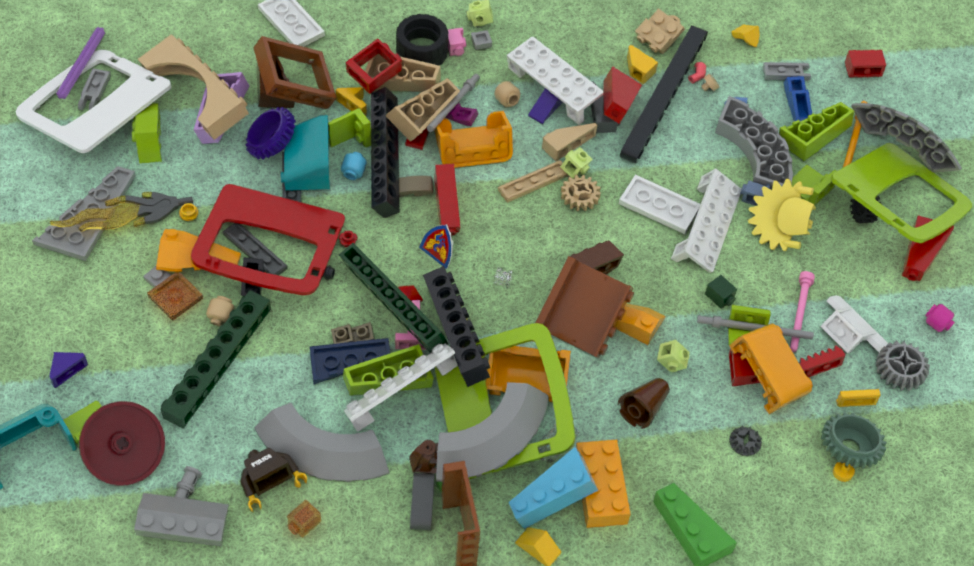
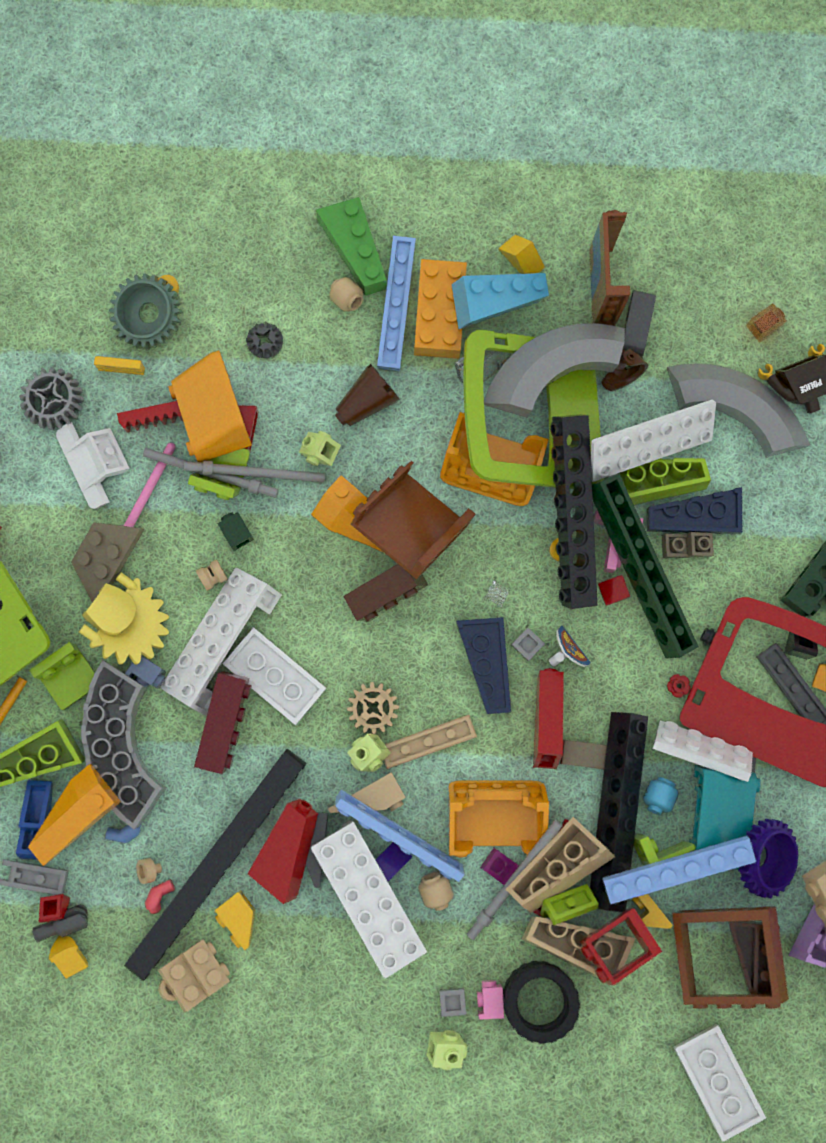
camera: 170 degrees left, 25 degrees up
(326, 189) = (703, 750): none -> white plate
(338, 106) = (679, 869): none -> light blue plate
(411, 88) = (569, 904): none -> lime panel
(471, 248) = (527, 644): none -> light grey plate
(500, 235) = (488, 660): none -> dark blue wing
(544, 114) = (391, 831): none -> light blue plate
(641, 487) = (396, 303): none -> light blue plate
(688, 482) = (346, 294): none -> tan head
(689, 167) = (222, 722): none -> dark red brick
(731, 259) = (207, 578): none -> tan wheel
(756, 49) = (73, 921): none -> dark grey arm
(757, 323) = (208, 468): none -> light grey bar
(766, 53) = (53, 907): none -> red slope
(771, 98) = (77, 809): none -> light orange wedge
(816, 259) = (104, 555): none -> dark tan wing

